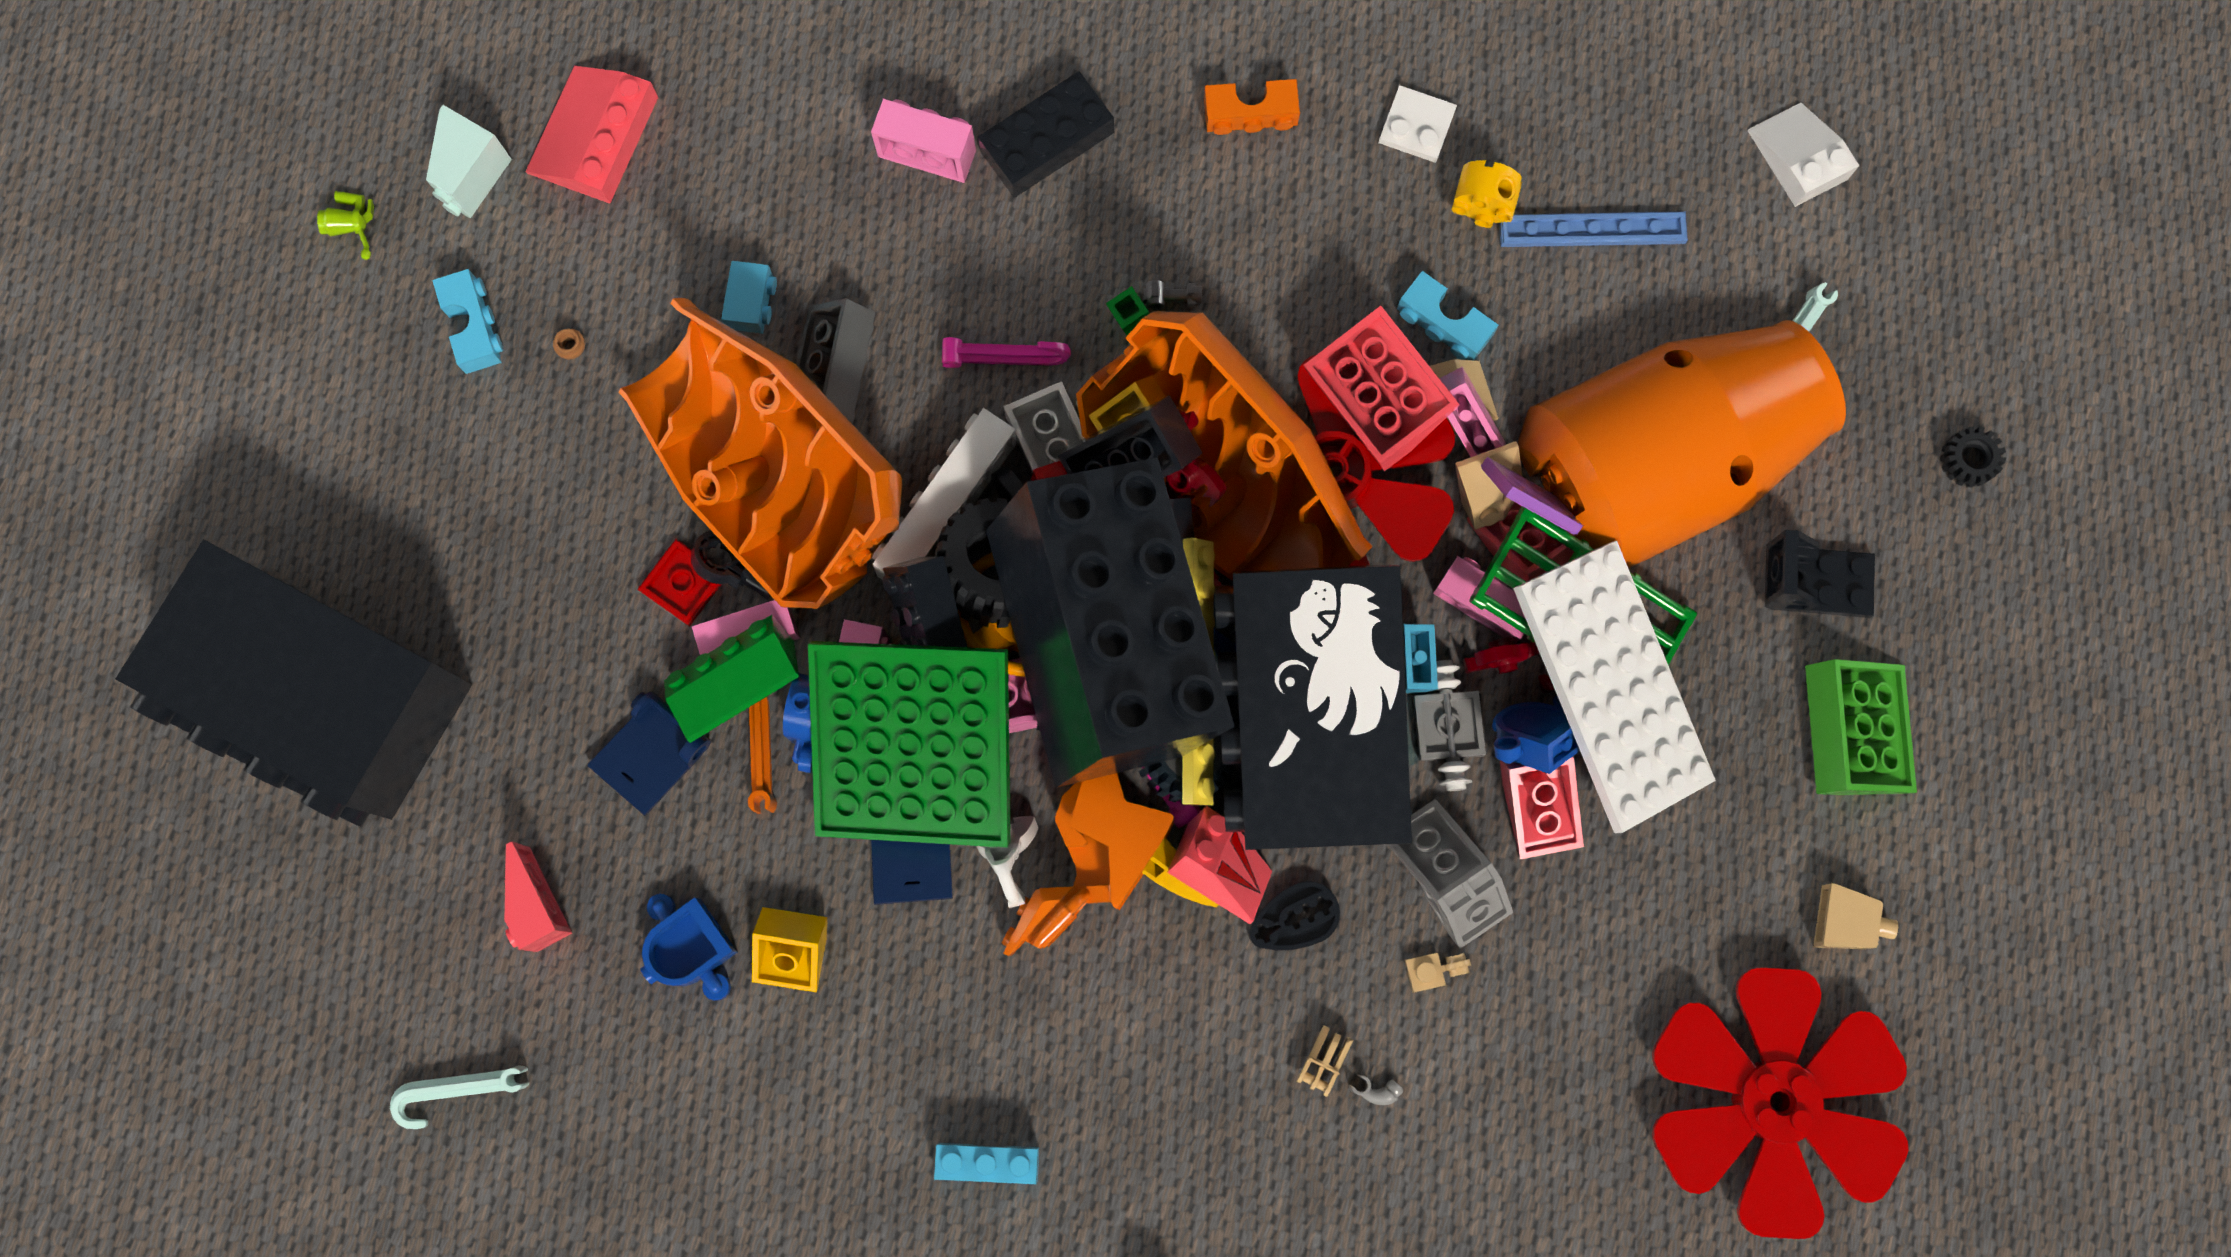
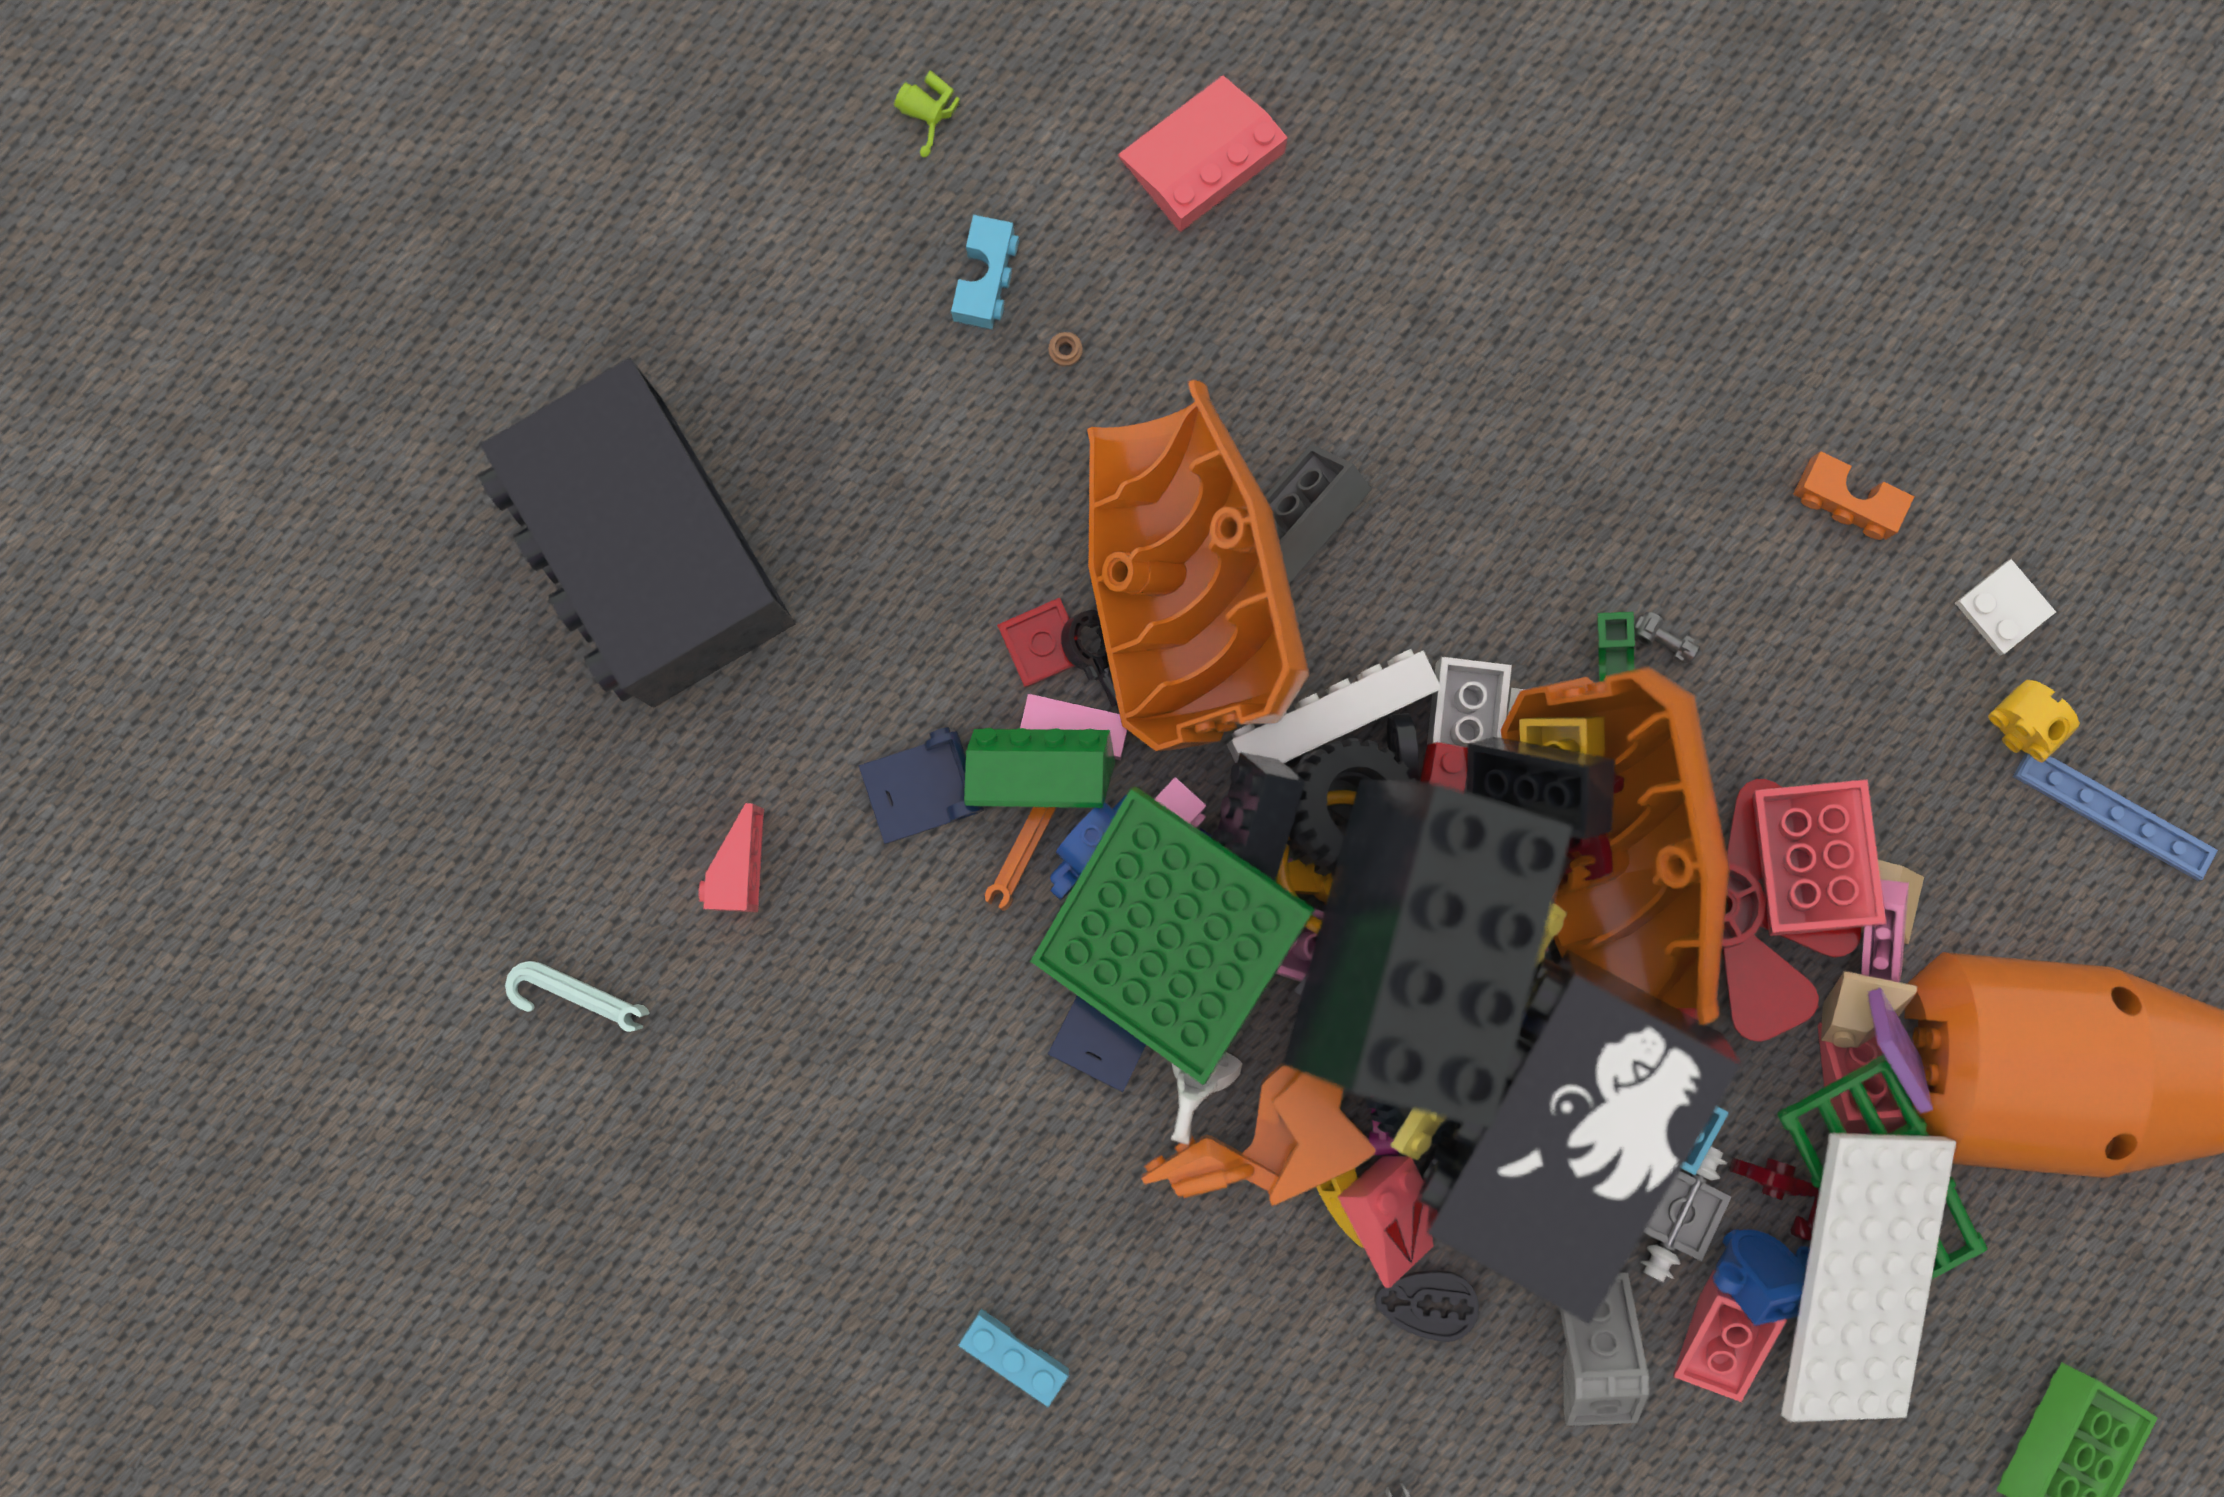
camera: 30 degrees right, 5 degrees up
(463, 163) = (1066, 115): light aqua slope -> none
(686, 947) = (853, 990): blue piece -> none
(748, 297) = (1259, 403): medium azure brick -> none
(788, 949) = (946, 1049): yellow slope -> none
(924, 140) = (1516, 347): bright pink brick -> none
(1045, 353) = (1425, 573): dark pink piece -> none
(1046, 134) = (1637, 408): black brick -> none
(1315, 1081) = (1384, 1448): tan arm -> none
(1427, 972) = (1522, 1430): tan plate -> none
(1460, 584) = (1777, 1087): bright pink brick -> none
(1464, 335) = (1902, 794): medium azure arch -> none
(1816, 579) = (2124, 1287): black bracket -> none

